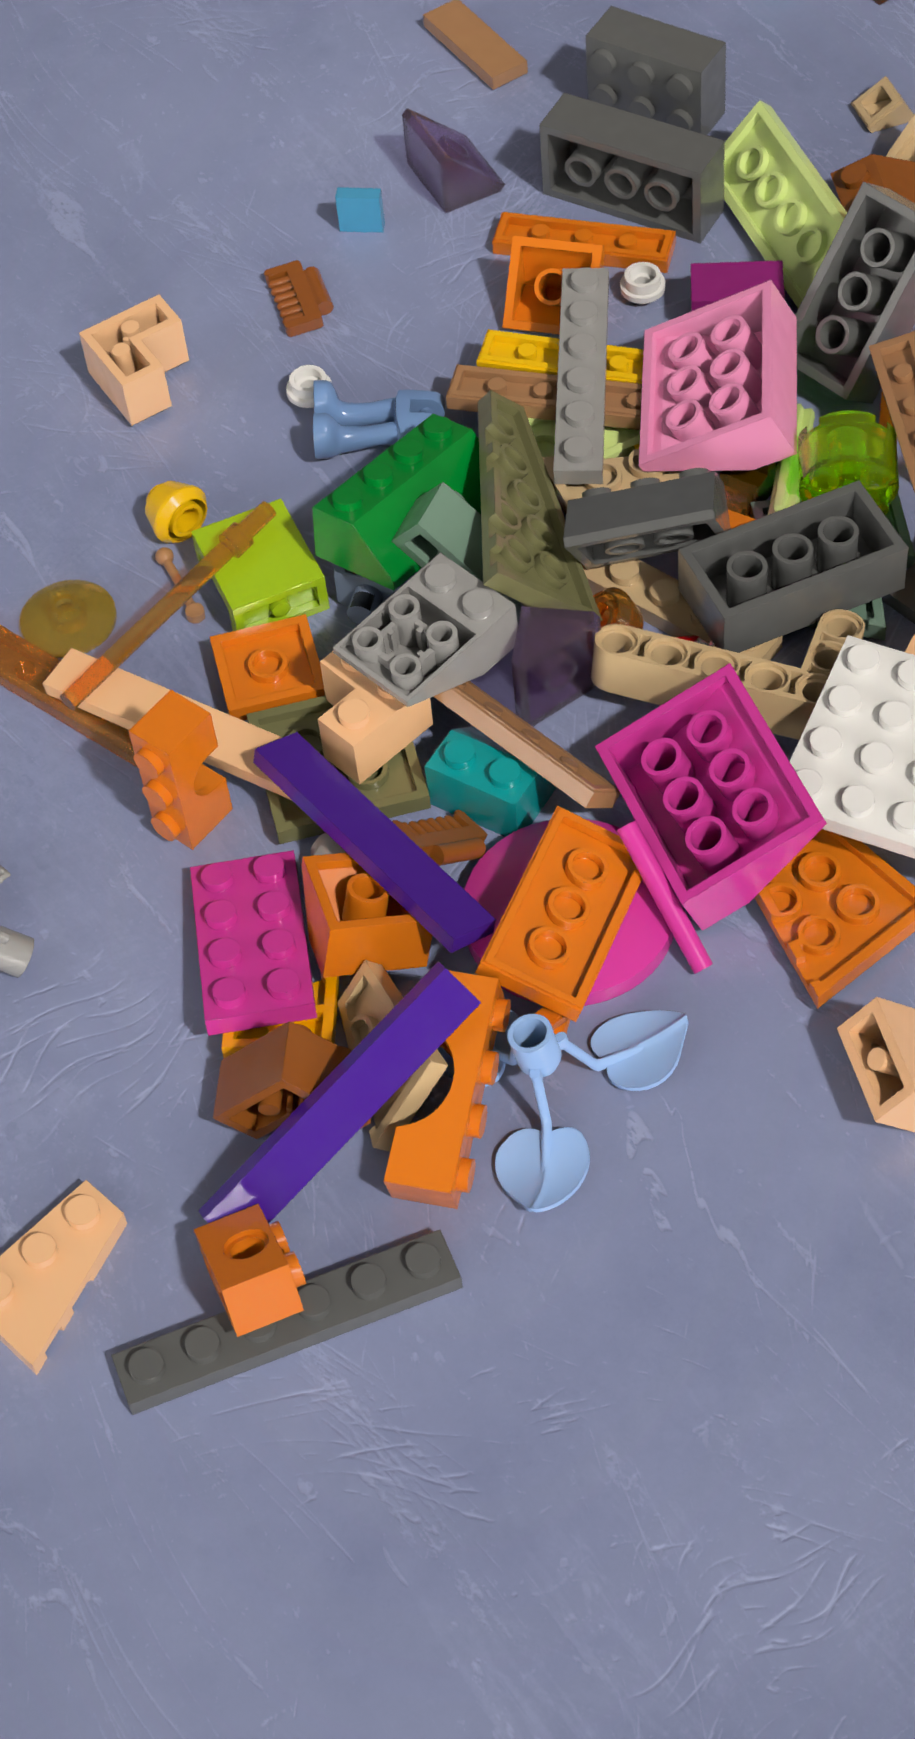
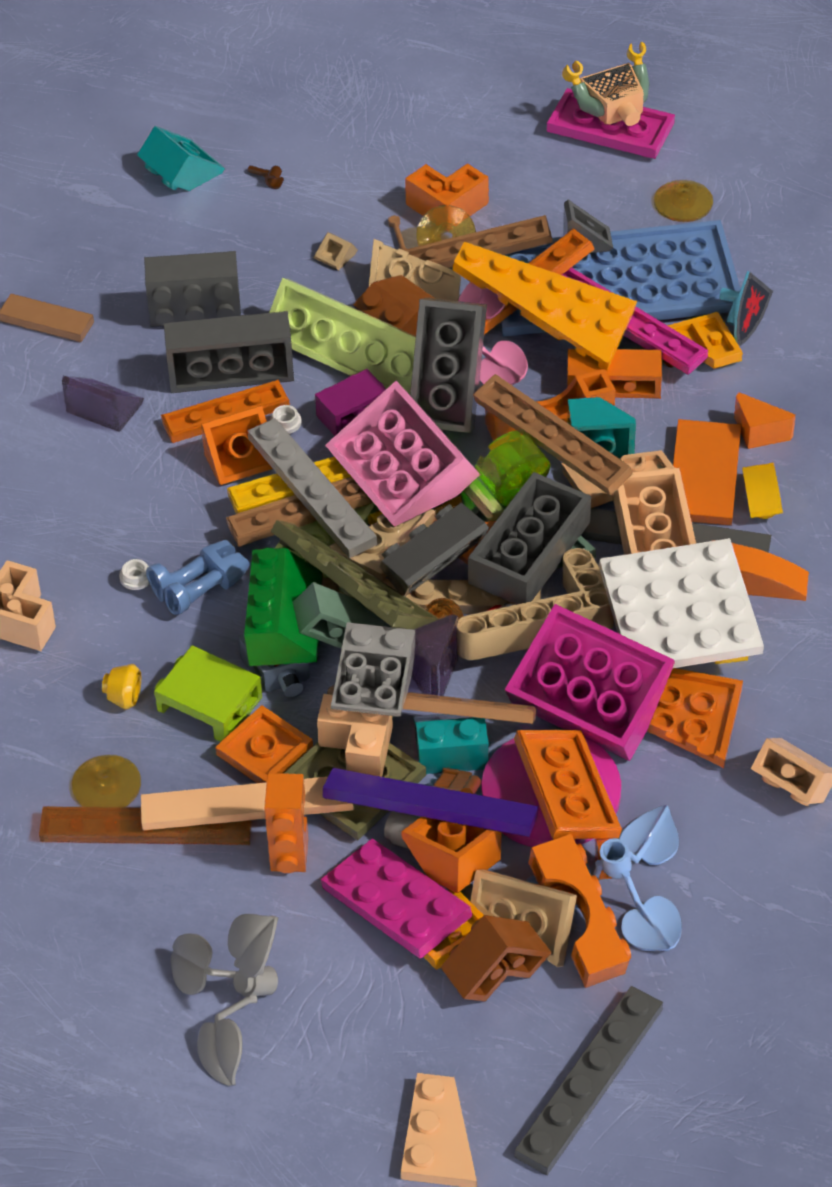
camera: 40 degrees left, 5 degrees down
(194, 611) = (183, 739): medium nougat hinge -> none
(232, 543) = (192, 684): clear orange bar -> none
(251, 1269) = (557, 1059): orange brick -> none
(299, 296) = (80, 519): dark orange piece -> none
(346, 1098) = (540, 948): dark purple tile -> none
(360, 209) = (72, 453): dark azure tile -> none
(664, 897) = (606, 750): dark pink bar -> none

